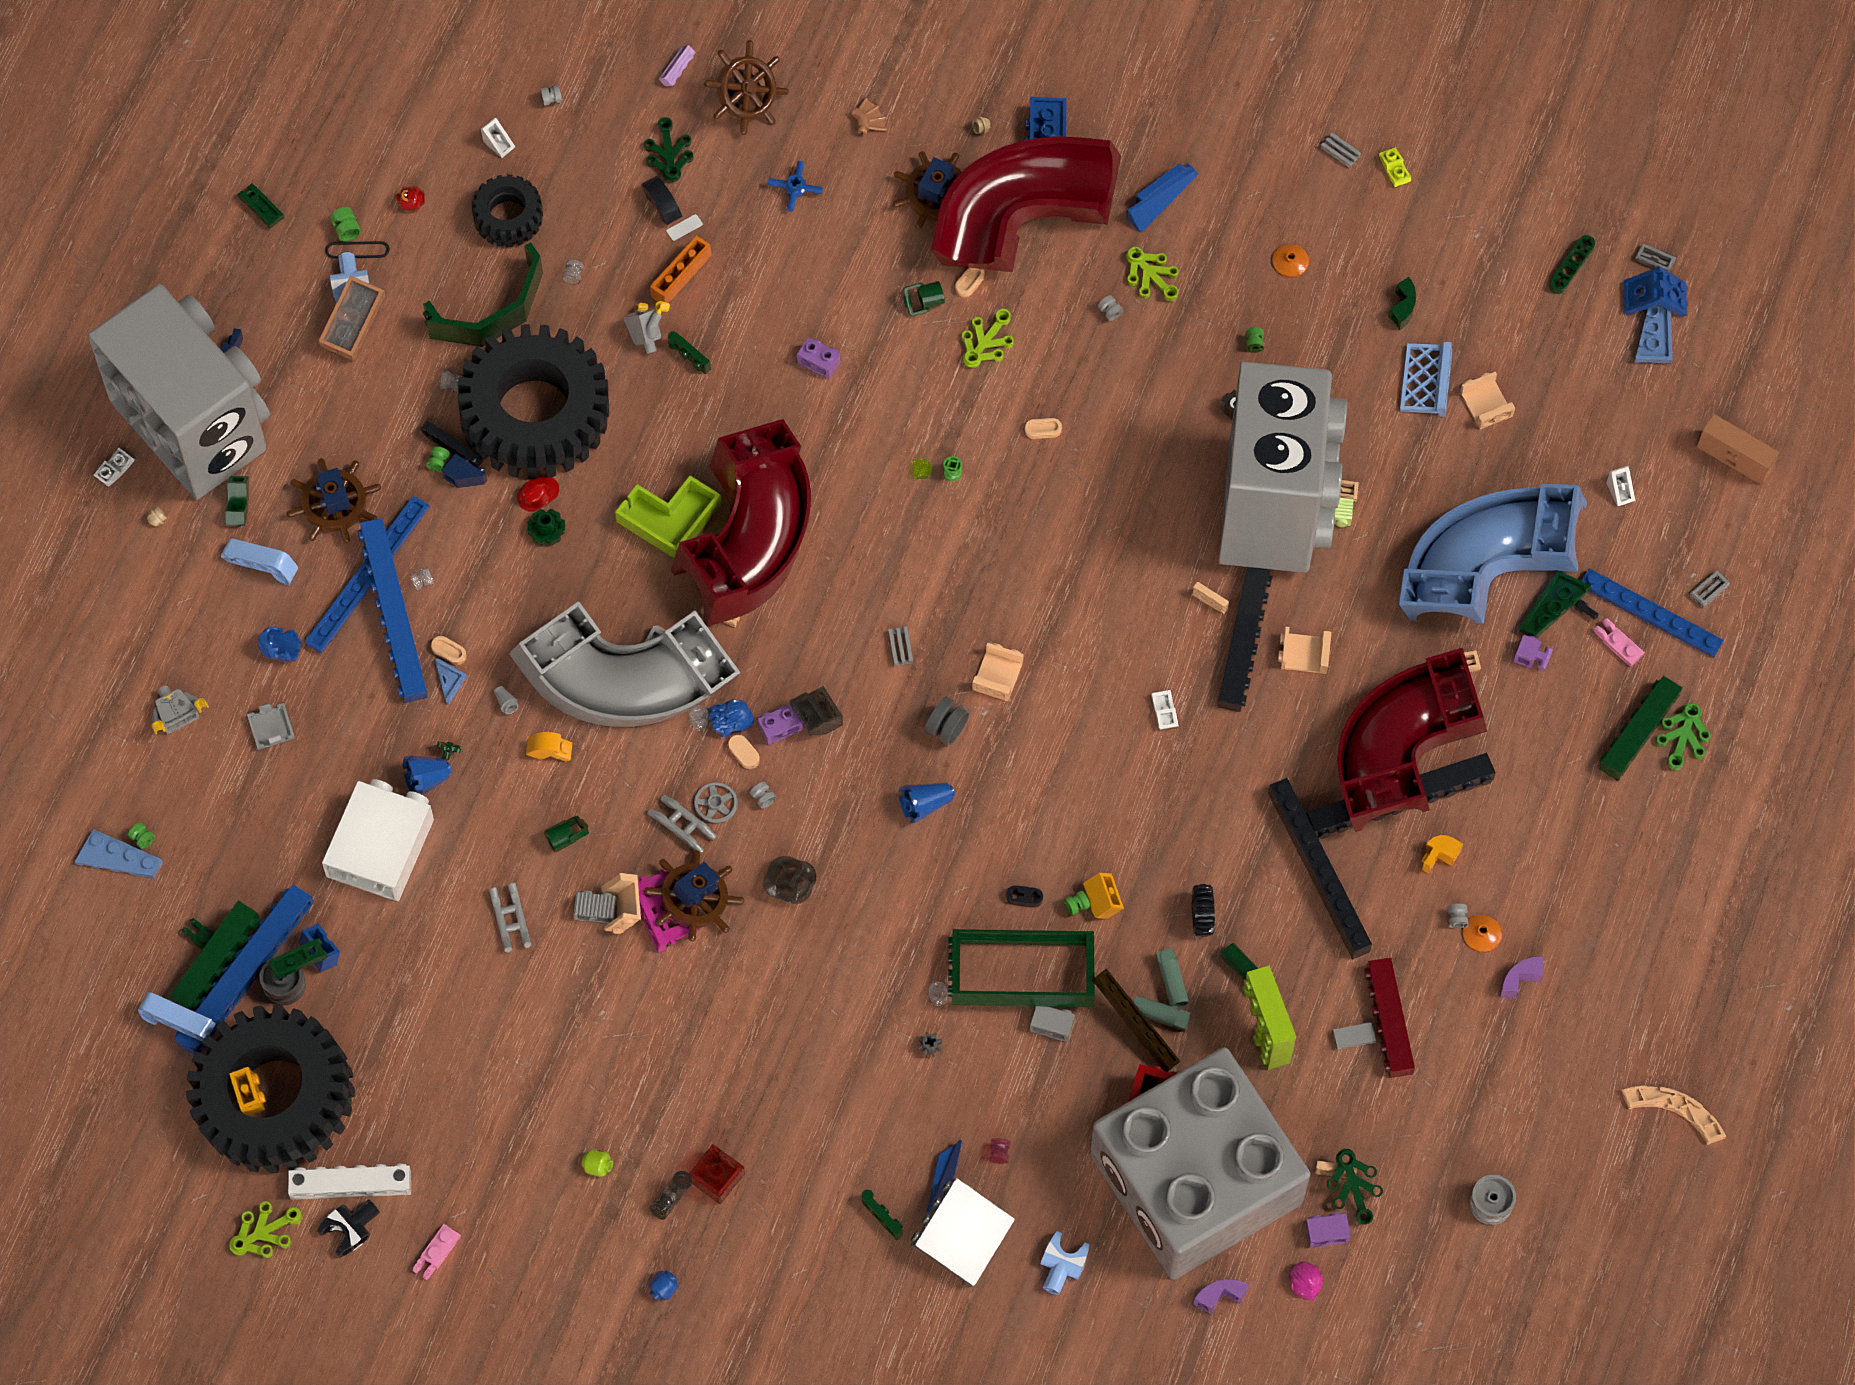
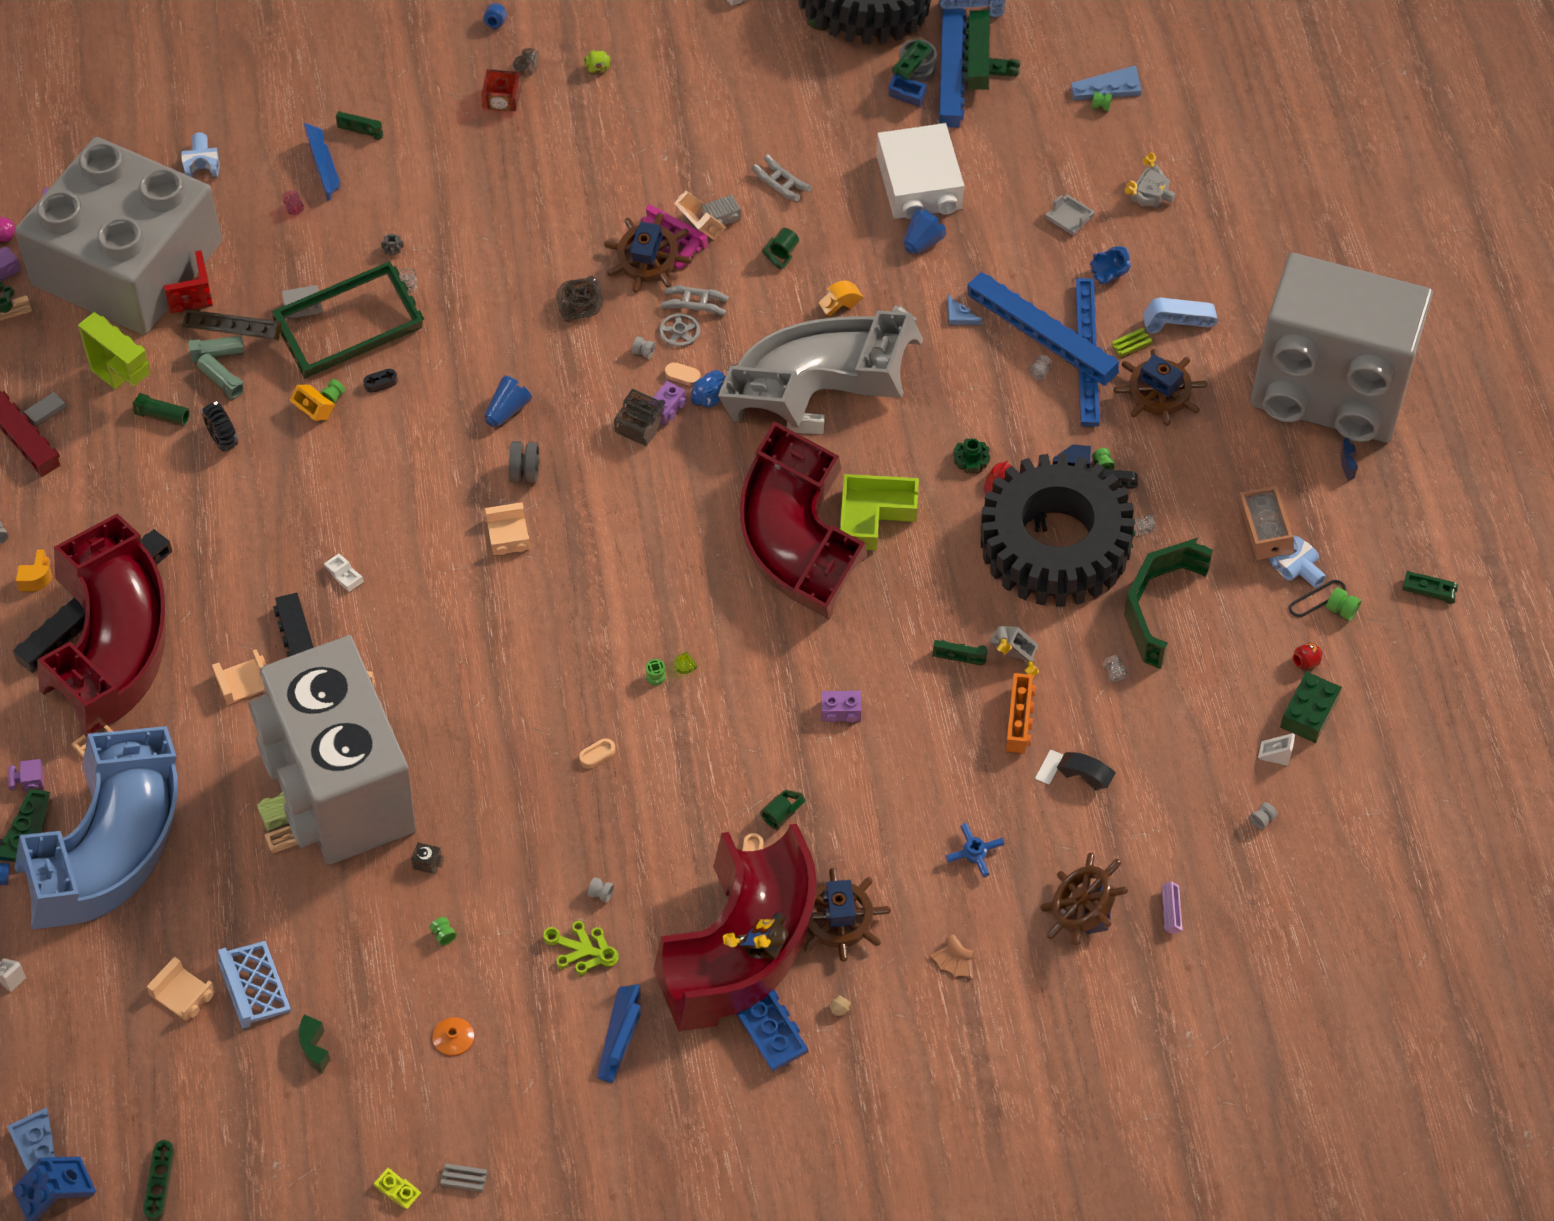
camera: 150 degrees right, 10 degrees down
(237, 500) = (1235, 352): brick -> none
(320, 560) = (1130, 340): none -> lime tile
(443, 156) = (1311, 707): none -> dark green brick
(448, 650) = (977, 333): light nougat tile -> none
(448, 749) = (920, 263): dark green plant -> none
(507, 190) = (1209, 704): black tyre -> none
(669, 153) = (1116, 823): dark green plant -> none
(898, 632) = (597, 503): light grey tile -> none
(962, 1231) = (287, 129): panel -> none
(986, 341) = (700, 801): lime plant -> none
(1018, 168) = (763, 939): none -> dark brown torso
(1319, 868) = (137, 509): black brick -> none

